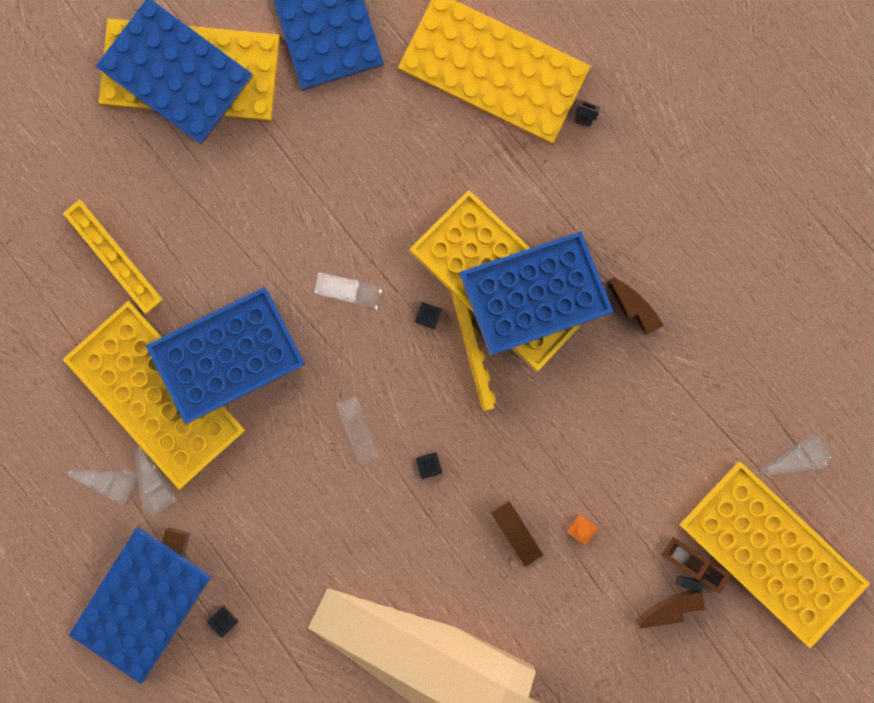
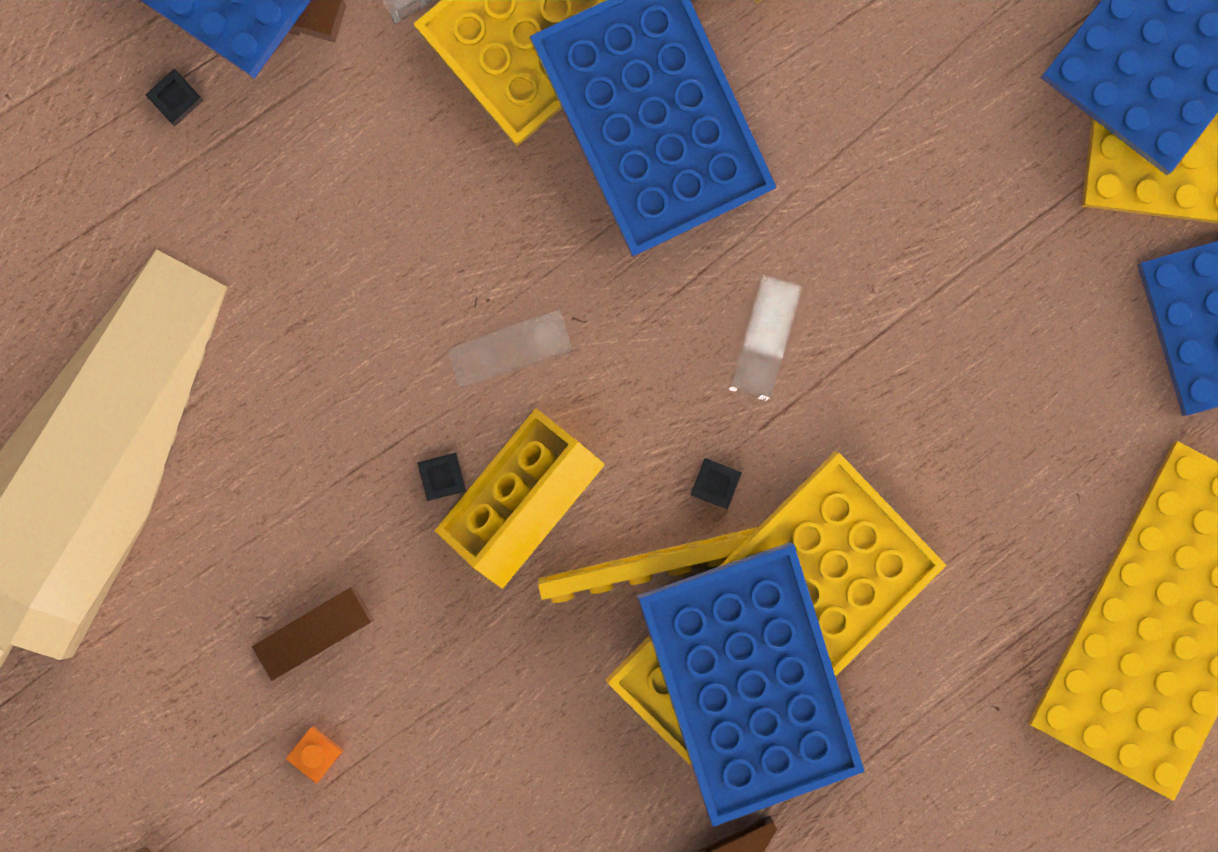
camera: 90 degrees right, 0 degrees up
(439, 422) = (519, 498): none -> yellow slope
(586, 110) = (1090, 790): black tile -> none

